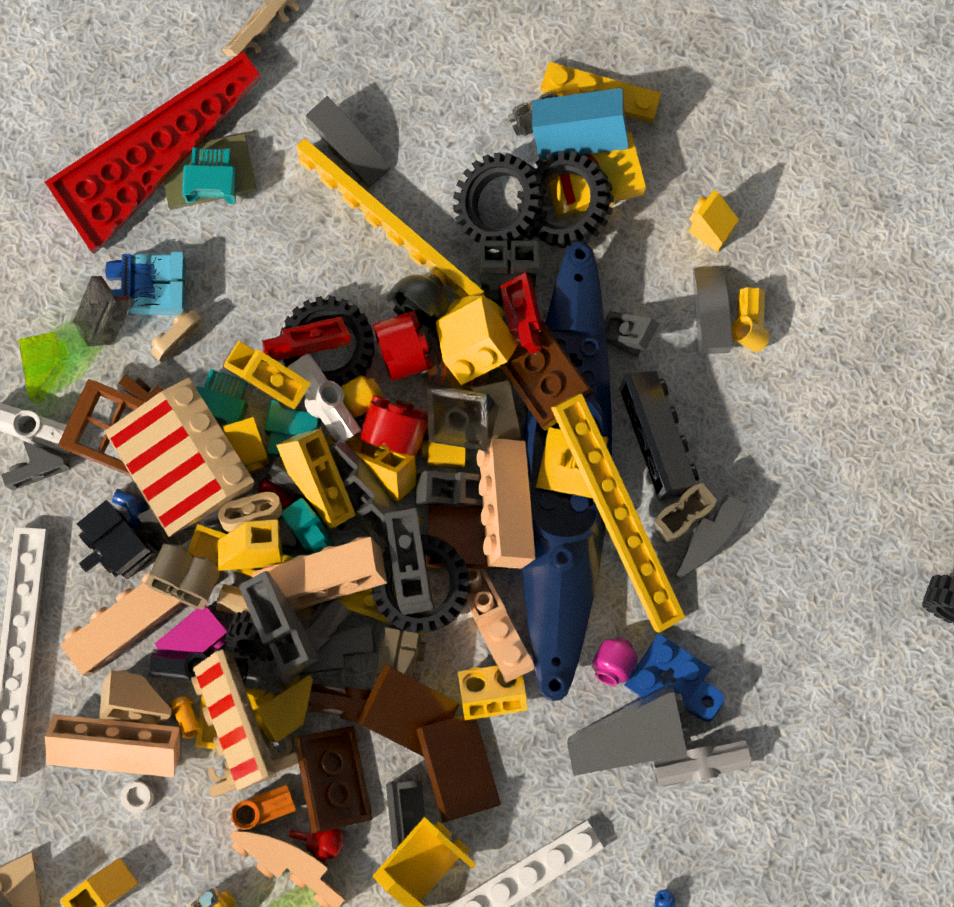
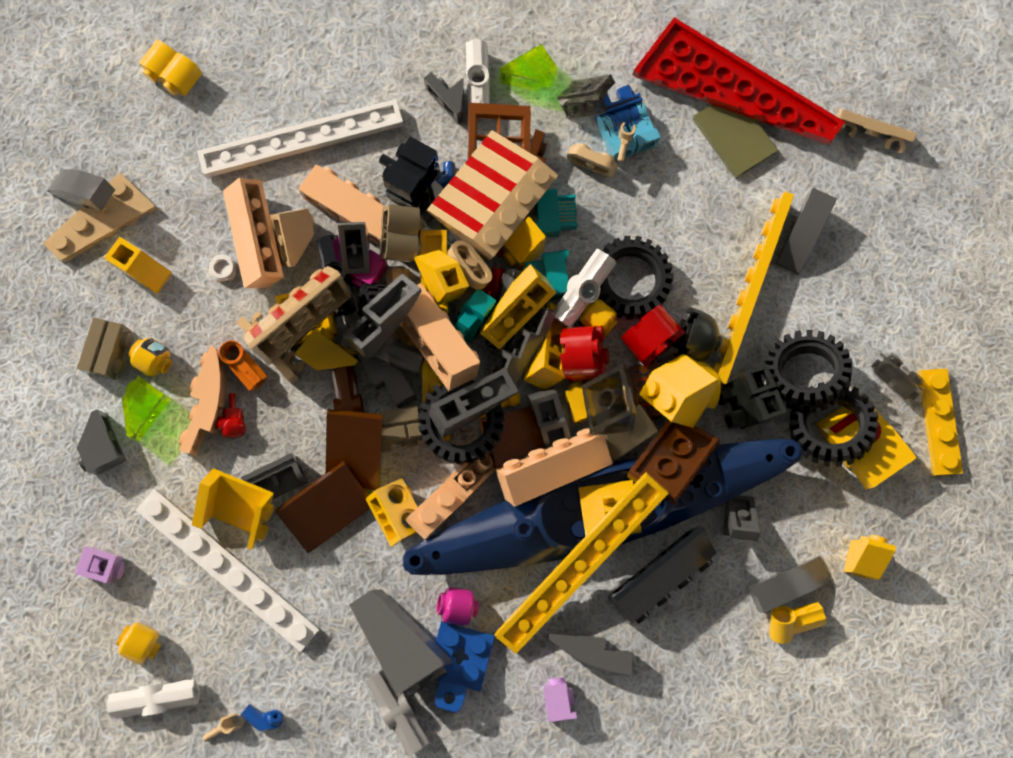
camera: 70 degrees right, 0 degrees up
(170, 289) = (625, 139): none -> tan hand
(182, 632) = (354, 247): none -> dark grey slope
(183, 711) = (296, 278): light orange pin -> none
(210, 176) = (731, 135): teal piece -> none
(266, 374) = (584, 234): yellow panel -> none
(307, 339) = (627, 257): red hinge -> none
(332, 779) = (282, 410): reddish brown tile -> none
(522, 311) = (720, 421): red hinge -> none
(580, 123) = (905, 411): dark azure slope -> none
(688, 510) = (608, 624): dark tan brick -> none
(747, 590) = (558, 700): none -> lavender brick

